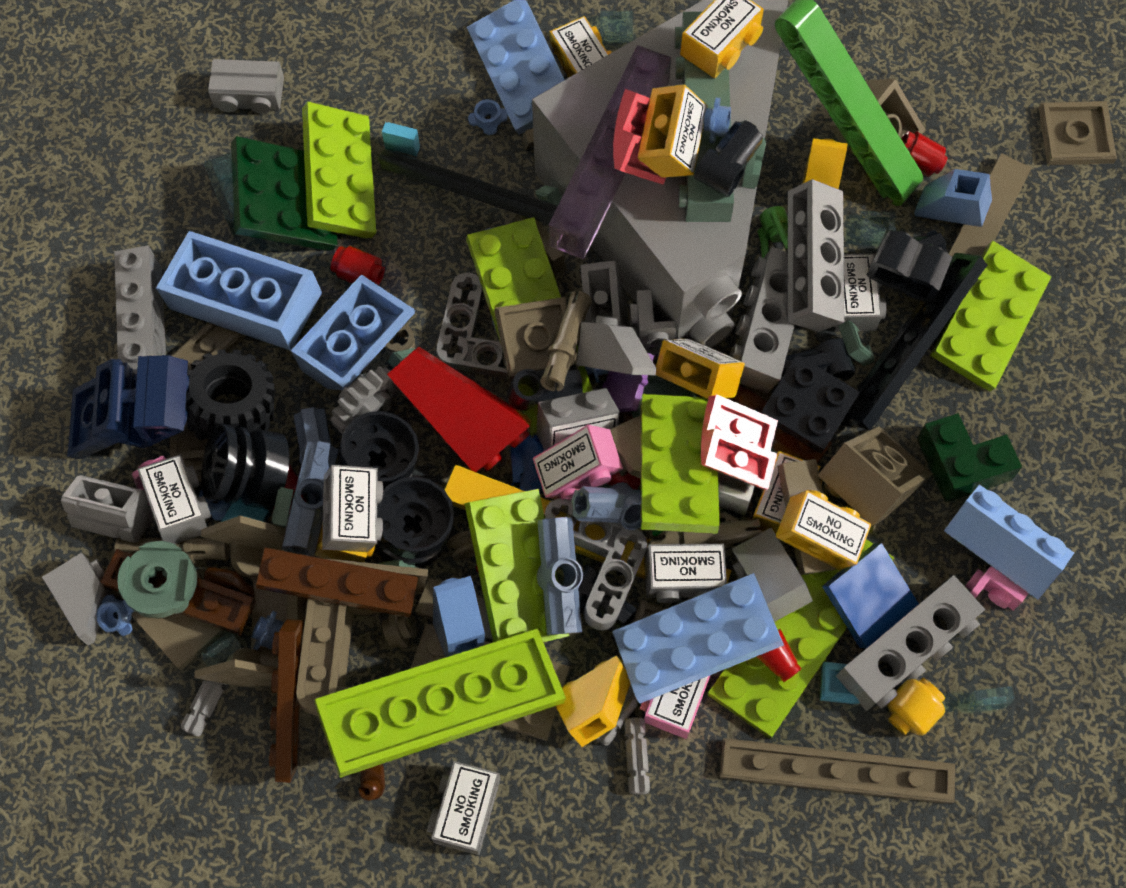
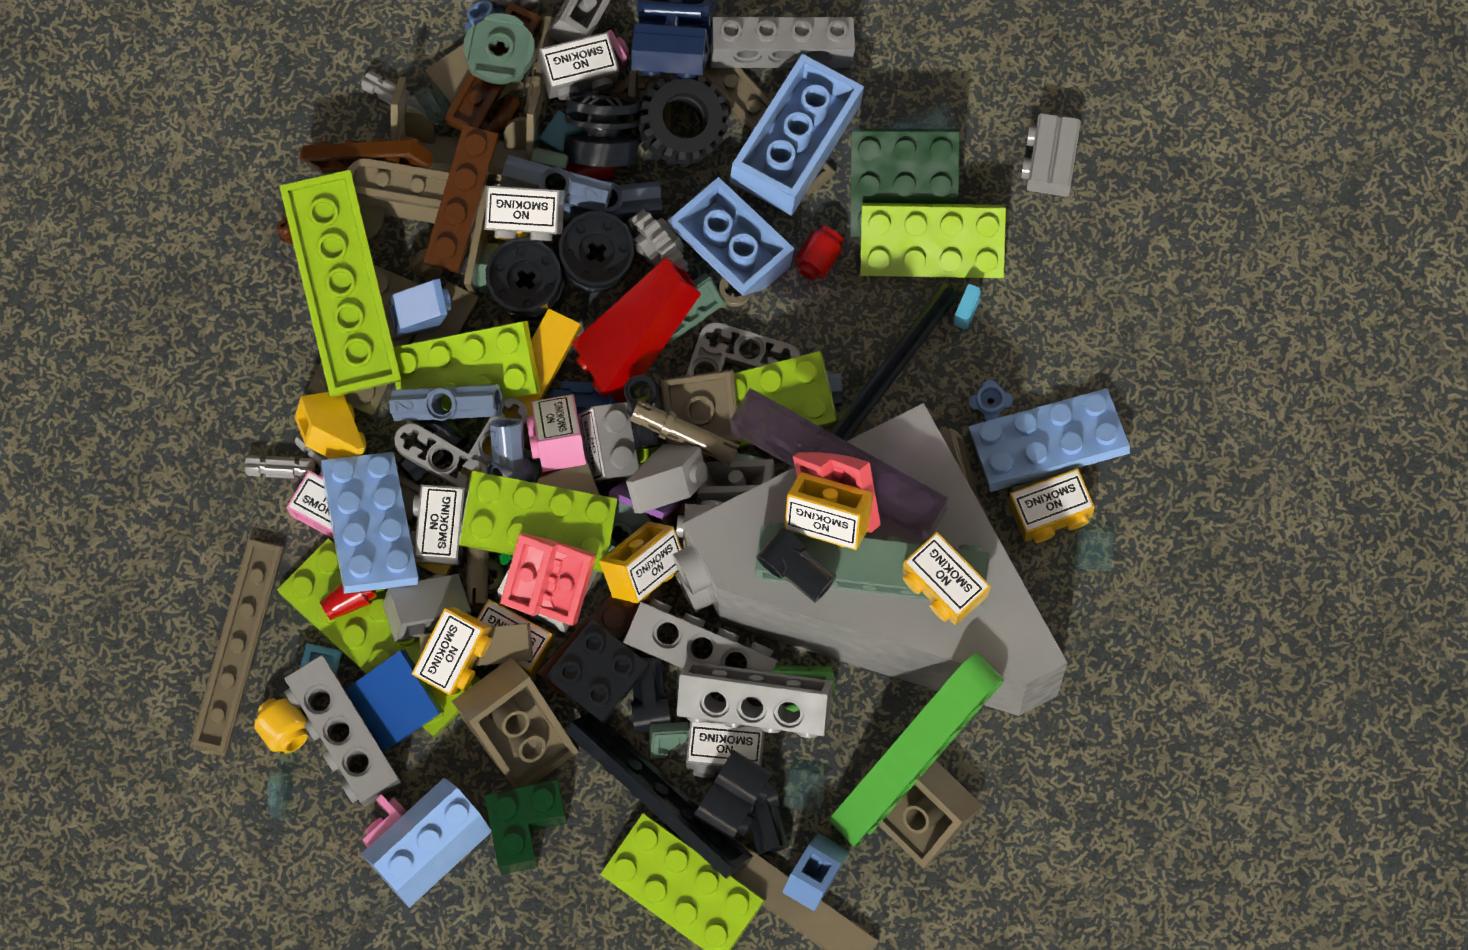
camera: 100 degrees right, 5 degrees up
(265, 630) = (443, 146): medium blue plate -> none
(464, 808) = (255, 308): brick -> none
(717, 120) = (840, 559): medium blue plate -> none
(753, 167) = (805, 606): sand green tile -> none
(825, 162) = (862, 733): yellow slope -> none
(926, 153) = (883, 848): red brick -> none

